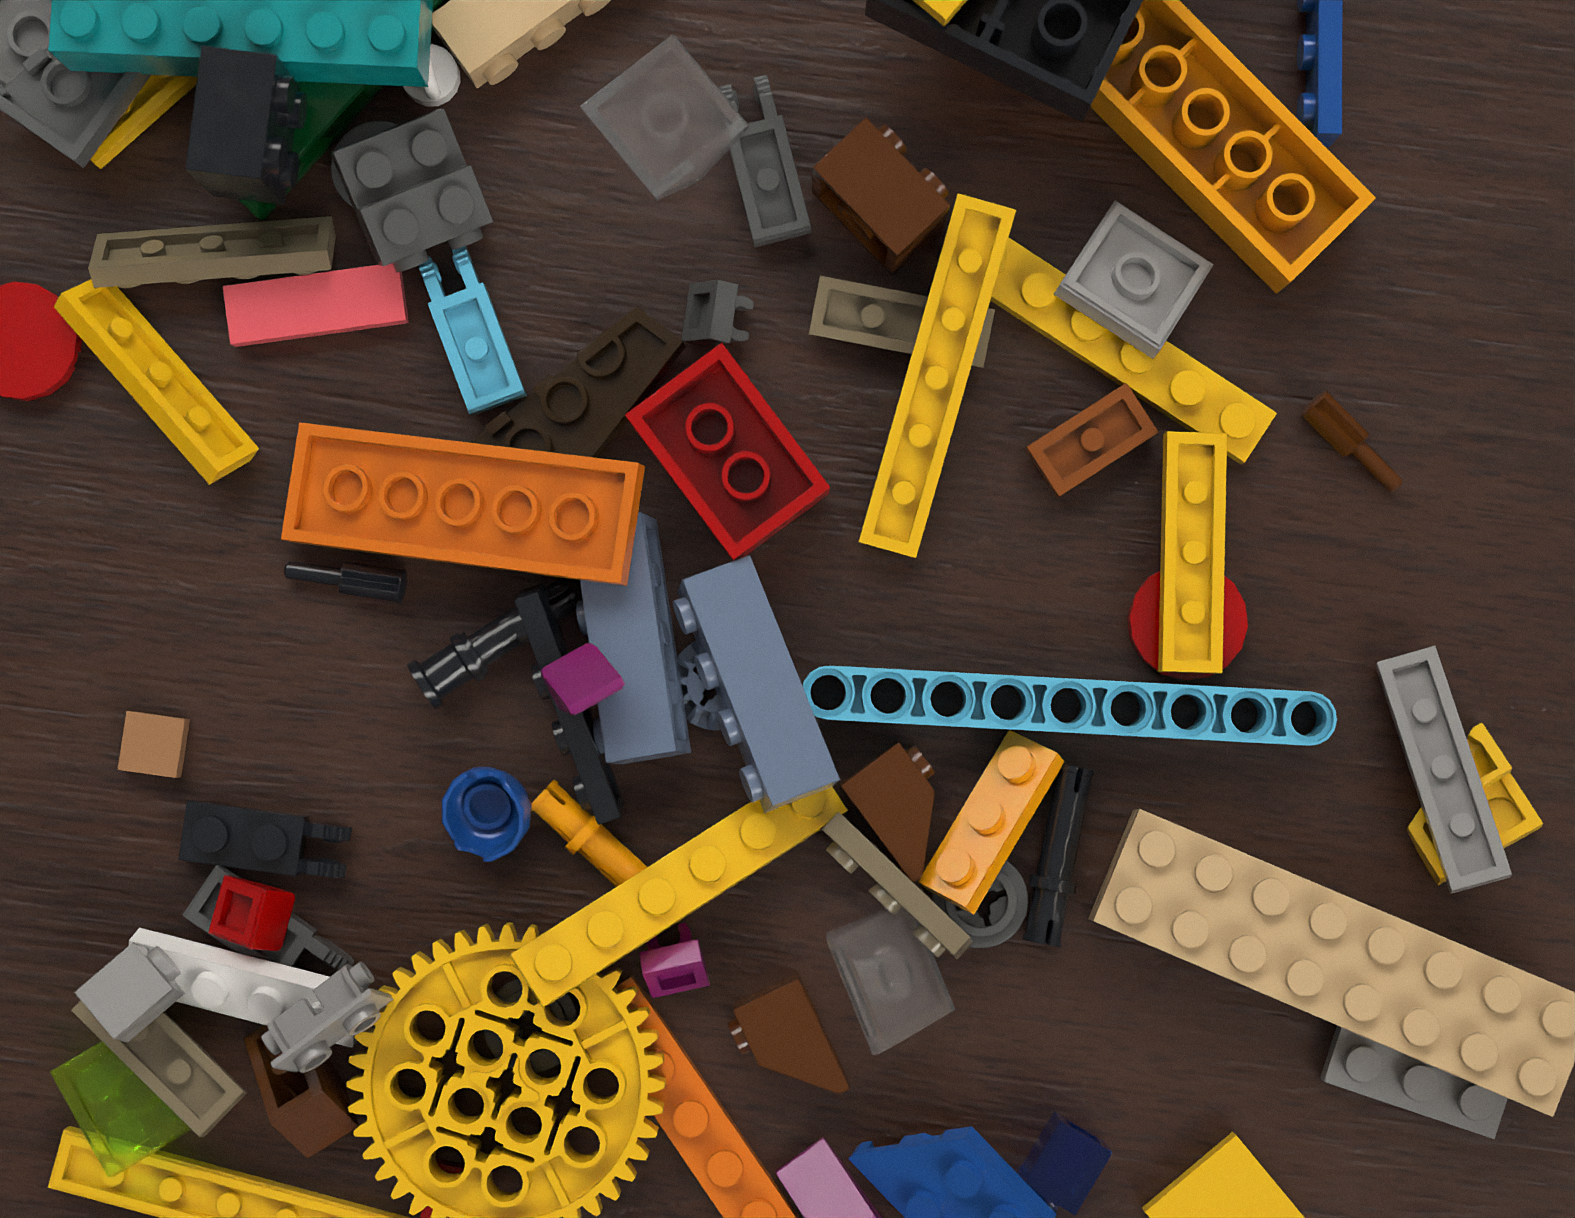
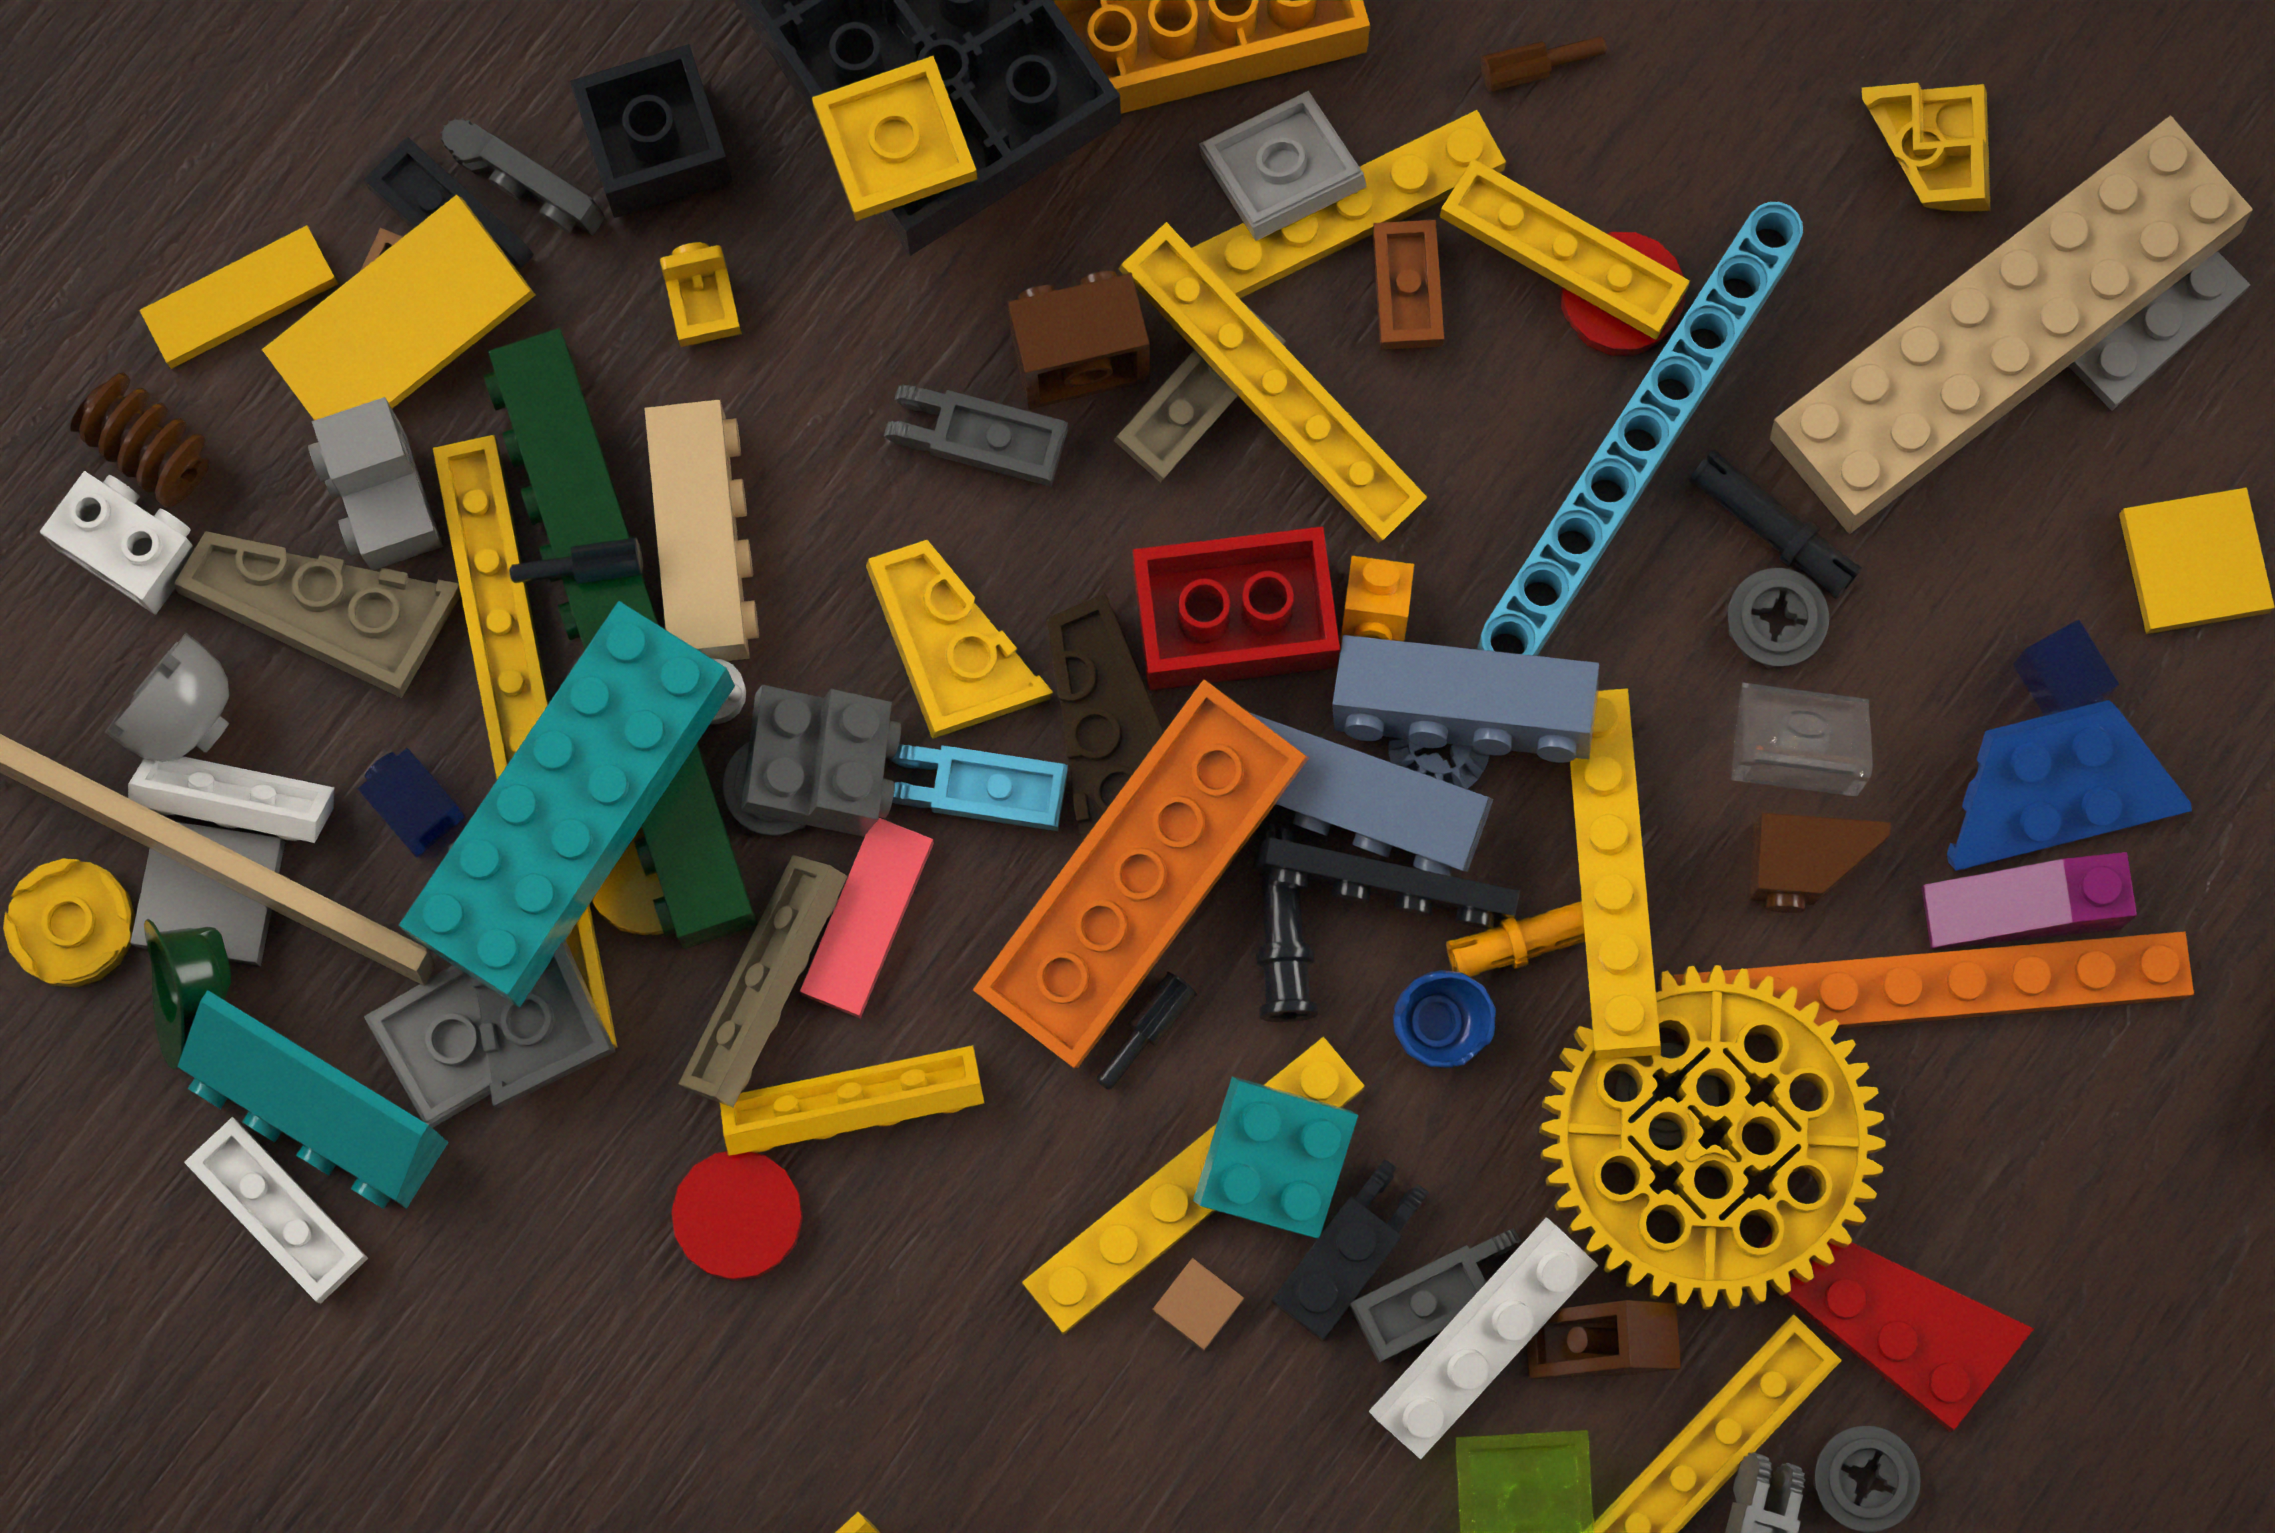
camera: 60 degrees left, 10 degrees down
(132, 990) = (1432, 1426): light grey brick -> none
(174, 1070) = (1501, 1446): dark tan plate -> none
(245, 126) = (686, 855): black brick -> none
(246, 687) = (1163, 1206): none -> yellow plate
(252, 914) = (1416, 1291): red slope -> none
(295, 741) = (1275, 1157): none -> teal plate
(308, 1036) = (1559, 1234): light grey hinge -> none
(572, 241) = (948, 646): none -> yellow wing
(581, 679) = (1375, 841): magenta slope -> none
(665, 119) = (891, 490): clear slope -> none
(674, 966) = (1687, 926): magenta tile -> none
(711, 313) = (1092, 554): dark grey tile -> none
(803, 567) = (1377, 599): none -> light orange bracket
(895, 889) = (1725, 680): dark tan plate -> none
(896, 803) = (1648, 641): reddish brown slope -> none
(991, 821) = (1711, 563): light orange plate -> none
(1443, 770) = (1886, 140): light grey plate -> none

